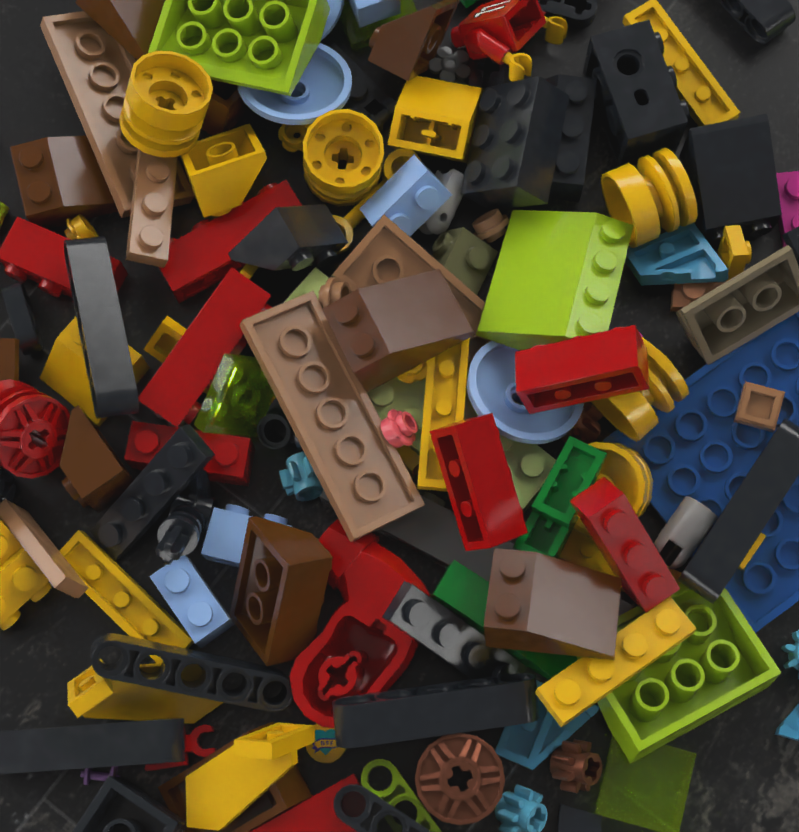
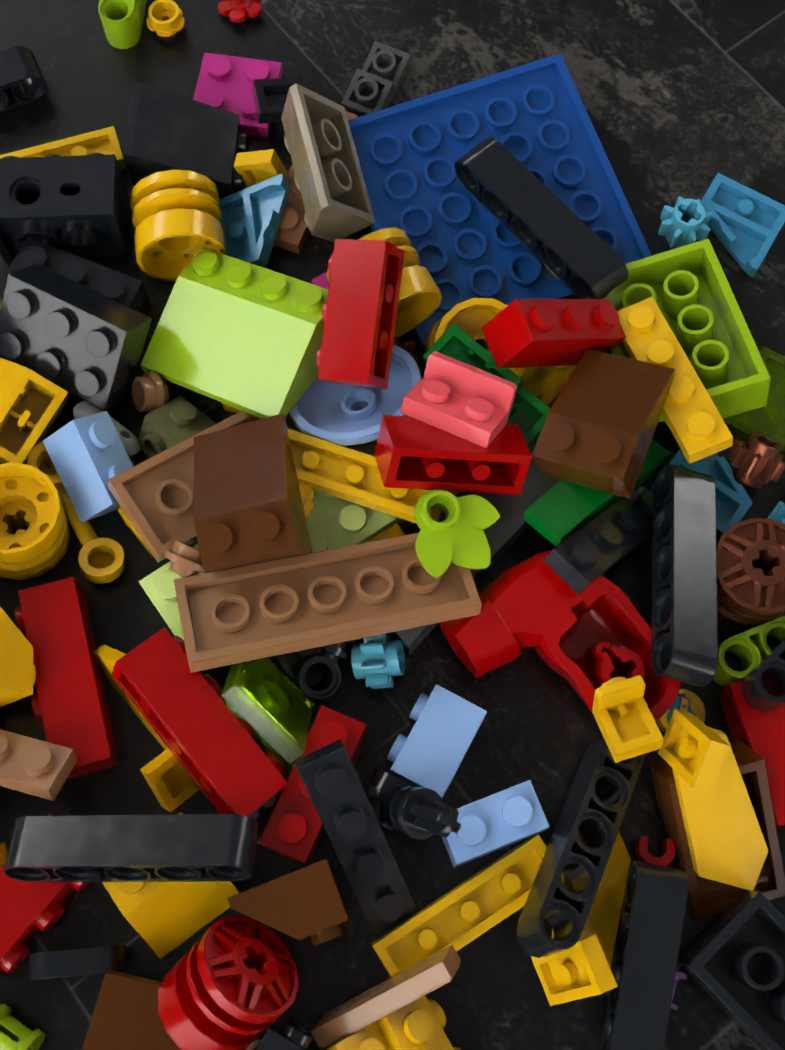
camera: 80 degrees left, 5 degrees down
(279, 589) = (509, 711): reddish brown slope -> none
(292, 239) = (101, 596): black slope -> none
(292, 683) = (626, 718): none -> yellow bracket
(399, 428) = (363, 528): coral plate -> none
(406, 505) = (456, 538): none -> lime plate
(525, 474) = (460, 400): none -> coral bracket
(686, 529) = (535, 281): light grey piece -> none
(759, 406) = (433, 187): medium nougat tile -> none

